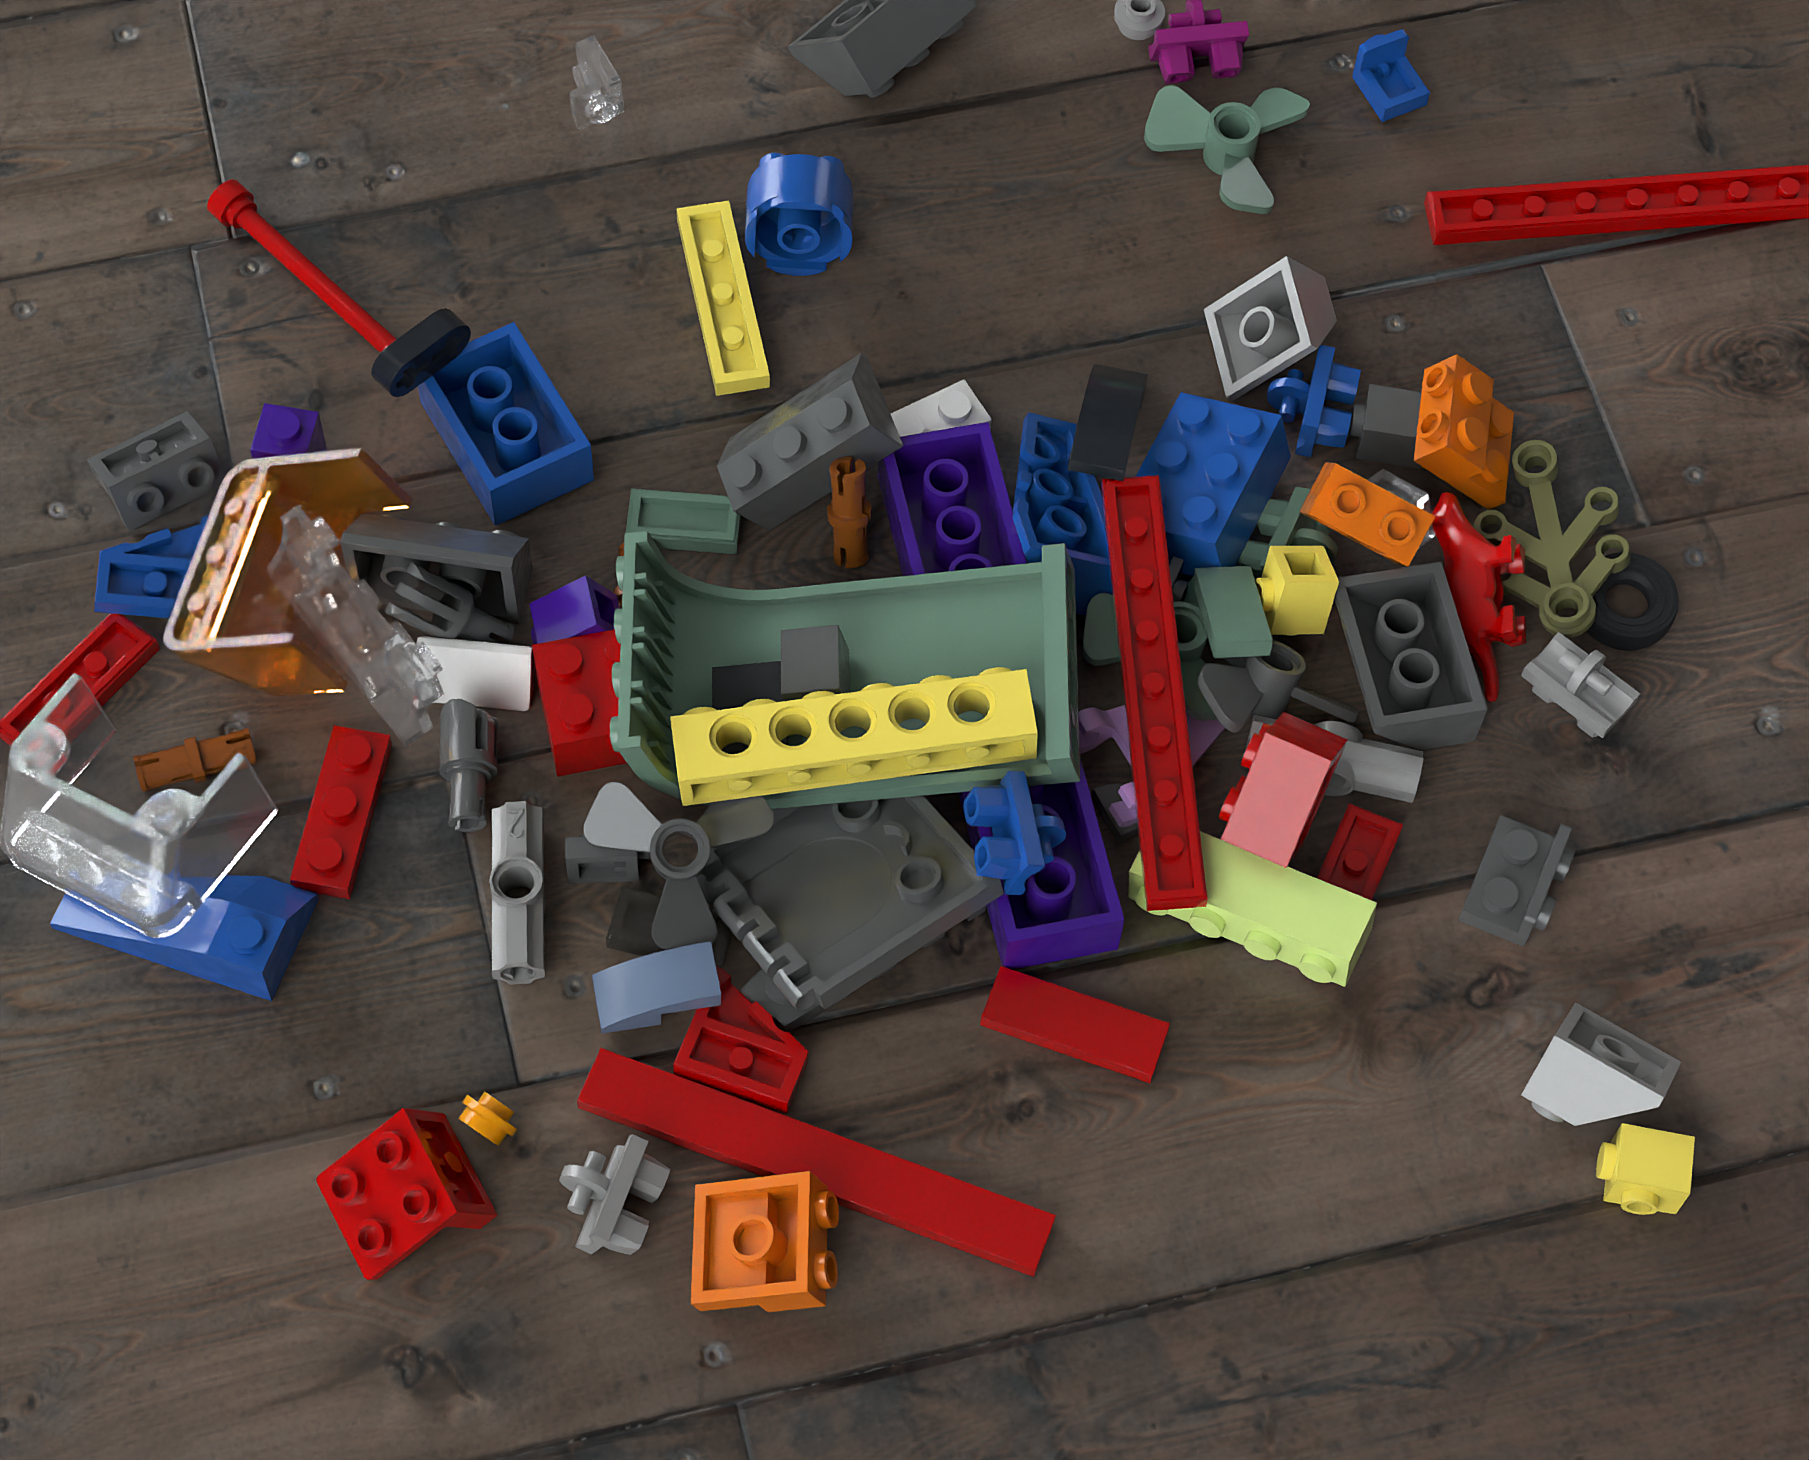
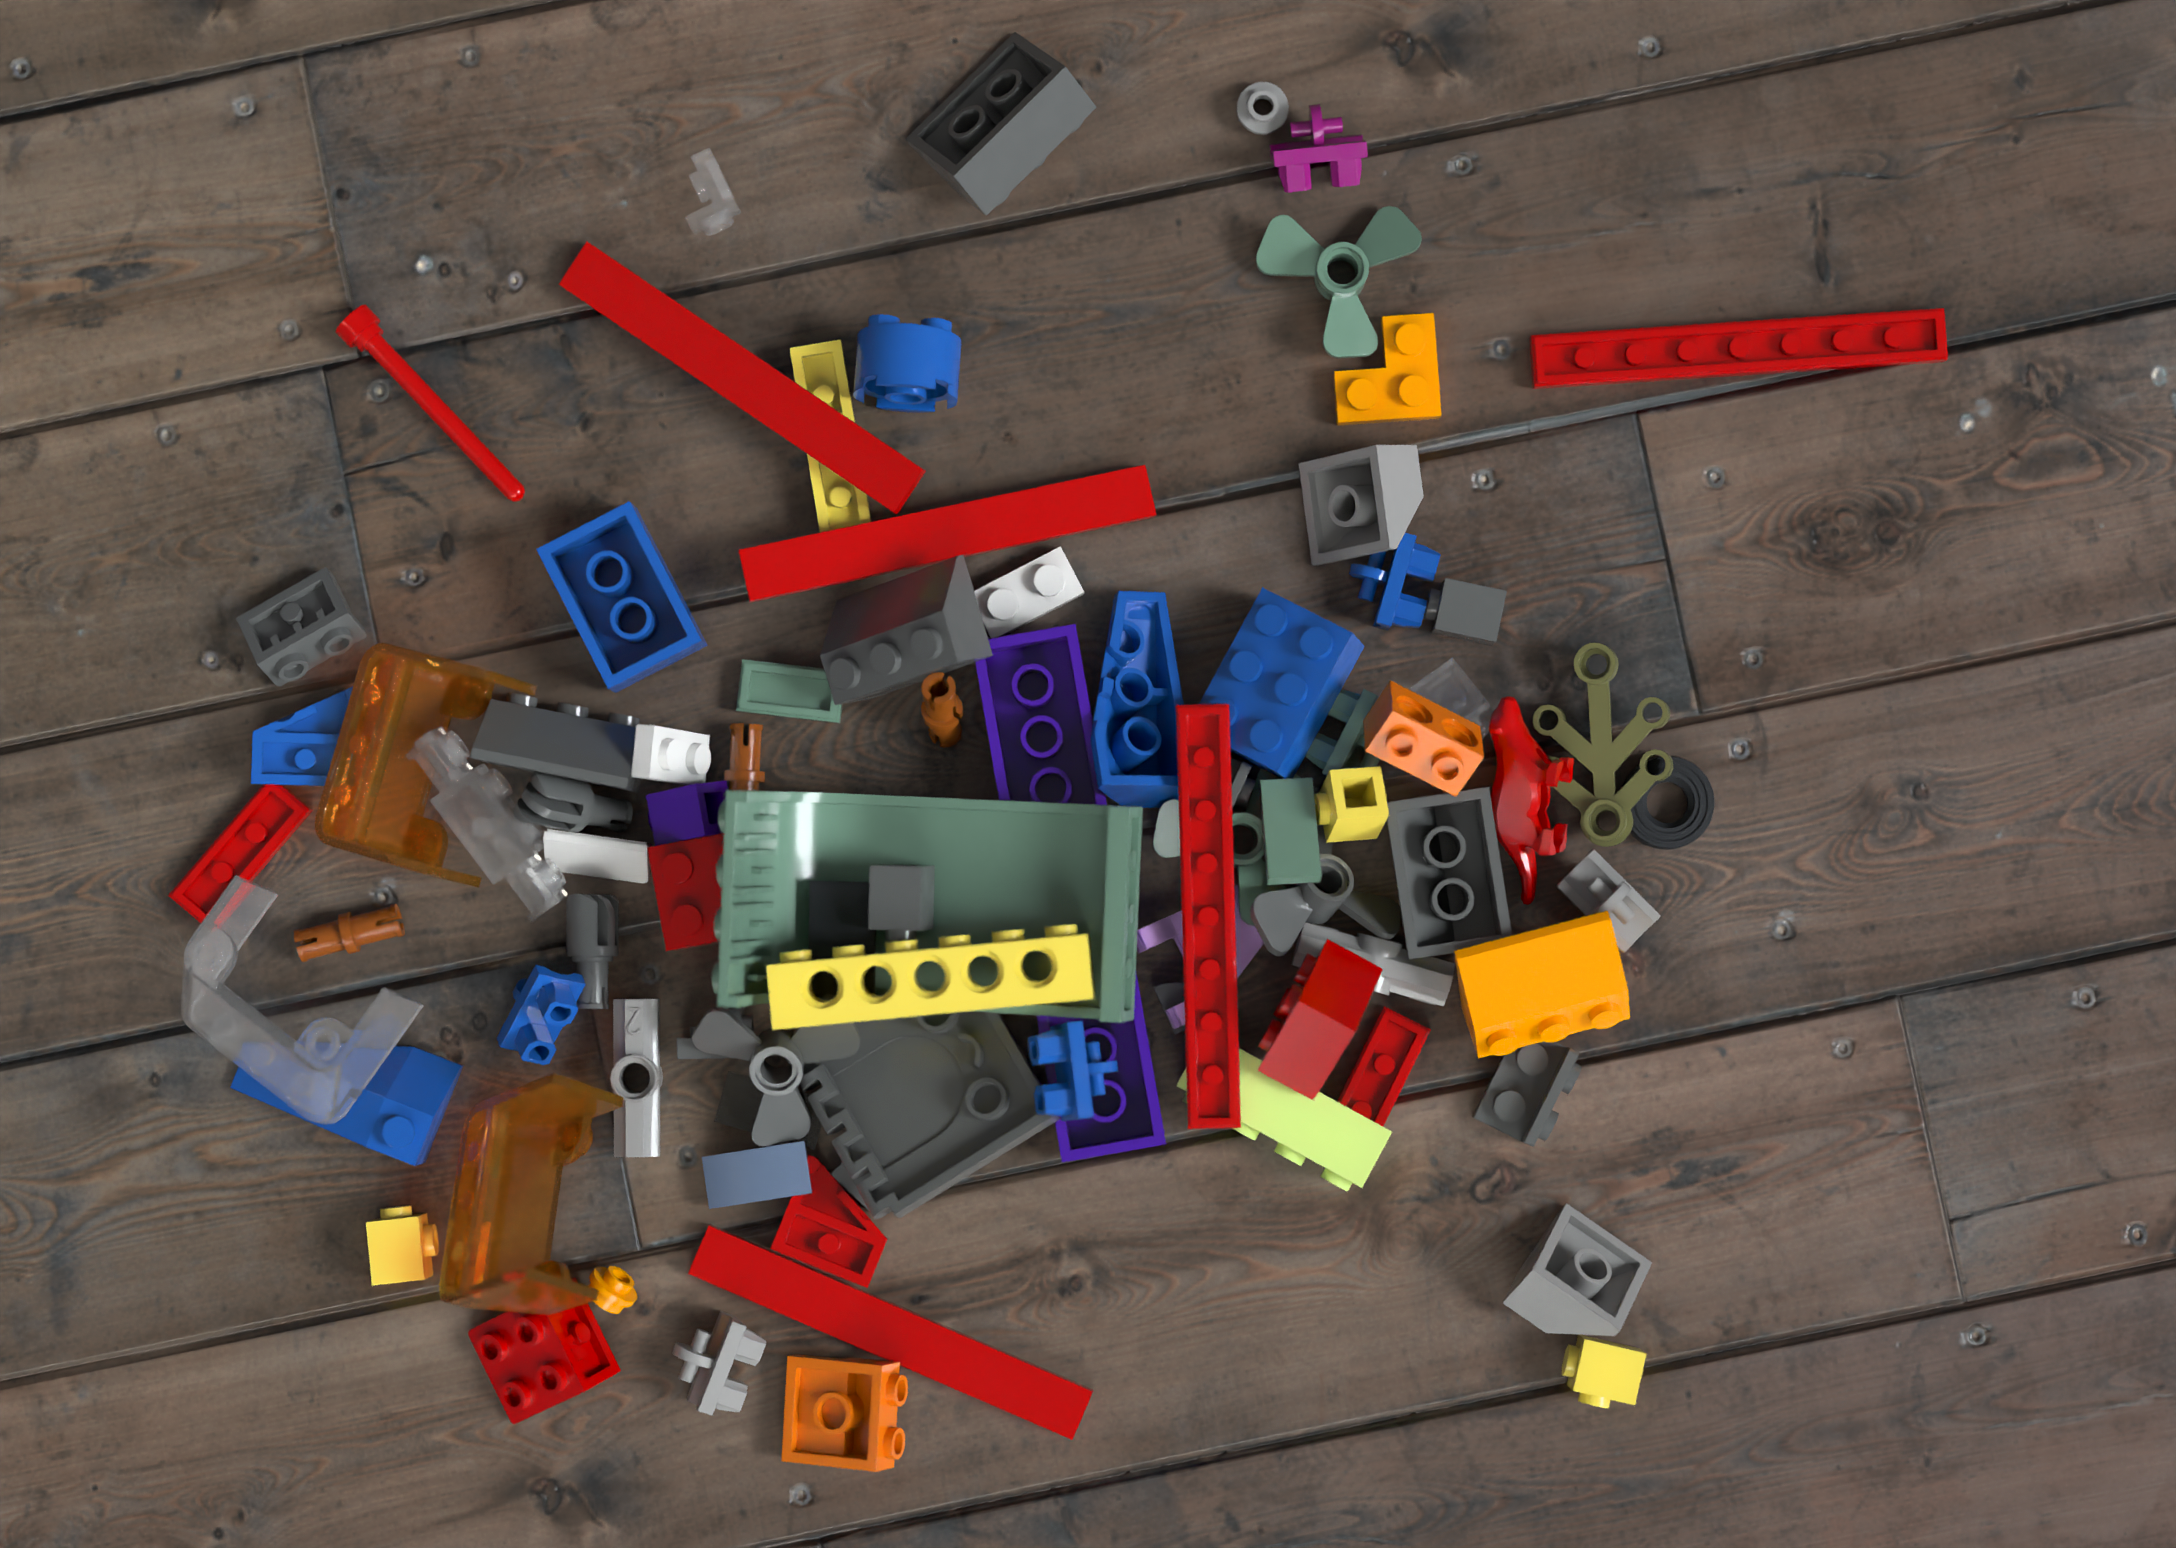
camera: 10 degrees right, 25 degrees up
(241, 1079) = (401, 1246): none -> light yellow brick
(287, 432) = (421, 614): dark purple brick -> none
(341, 812) = (480, 985): red plate -> none
(371, 991) = (510, 1195): none -> clear orange windscreen
(410, 820) = (540, 1012): none -> blue hips
(421, 352) = (541, 547): black beam -> none
(551, 553) = (670, 755): none -> white plate
(632, 233) = (742, 378): none -> red tile
(895, 356) = (946, 532): none -> red tile
(1075, 1024) = (1122, 1212): red tile -> none
(1107, 422) = (1191, 619): black slope -> none
(1304, 231) = (1404, 387): none -> light orange plate
(1388, 76) = (1507, 199): blue bracket -> none
(1464, 431) = (1531, 630): orange plate -> none
(1521, 756) = (1542, 985): none -> light orange slope

